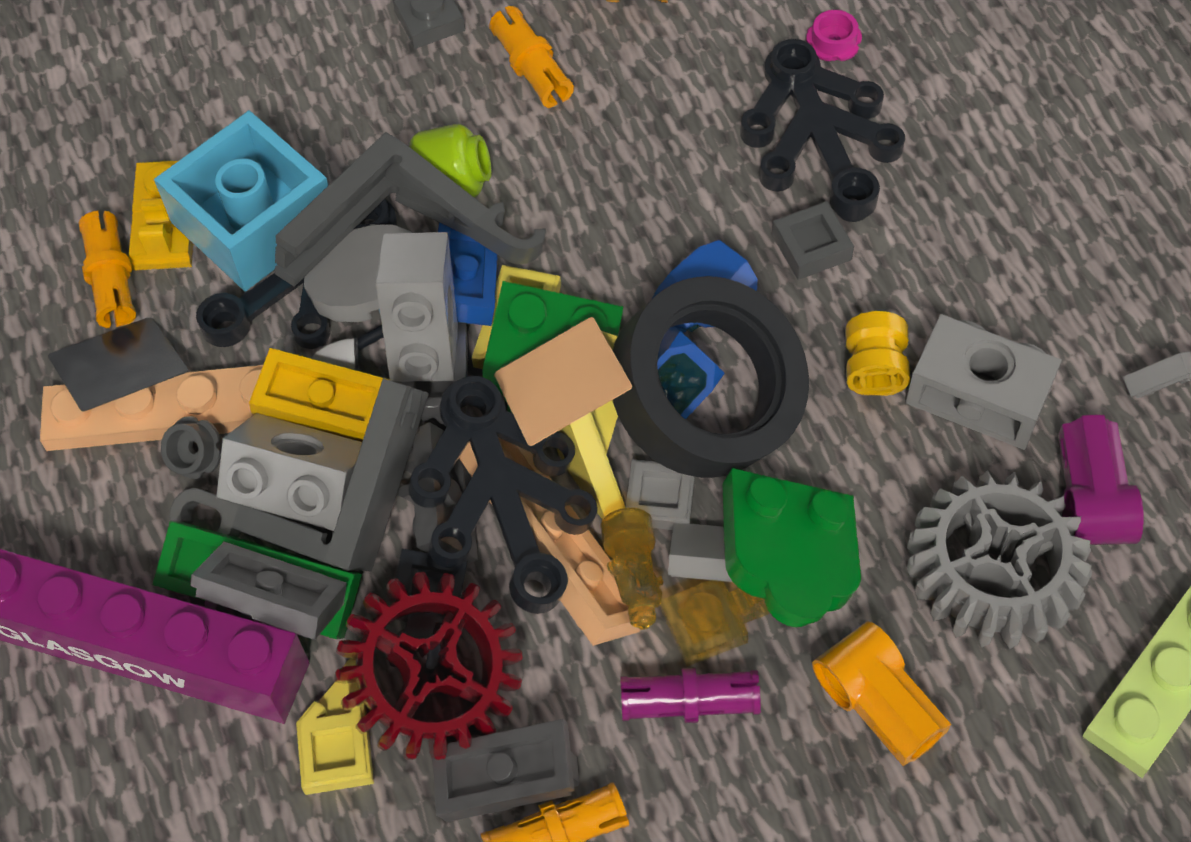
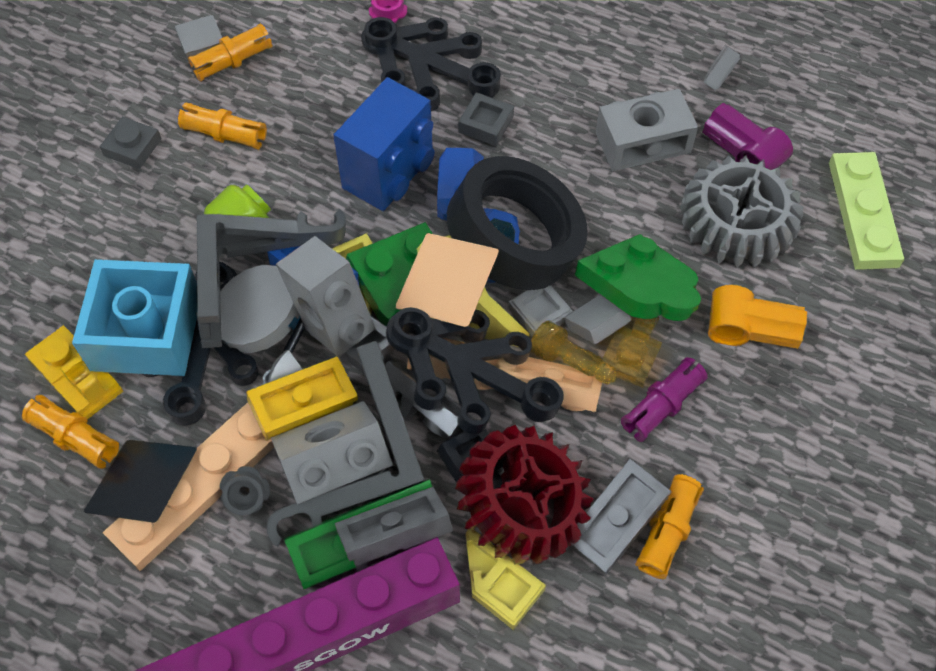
camera: 45 degrees left, 0 degrees up
(657, 189) = (385, 144): none -> blue brick
(877, 353) = (579, 152): yellow wheel -> none

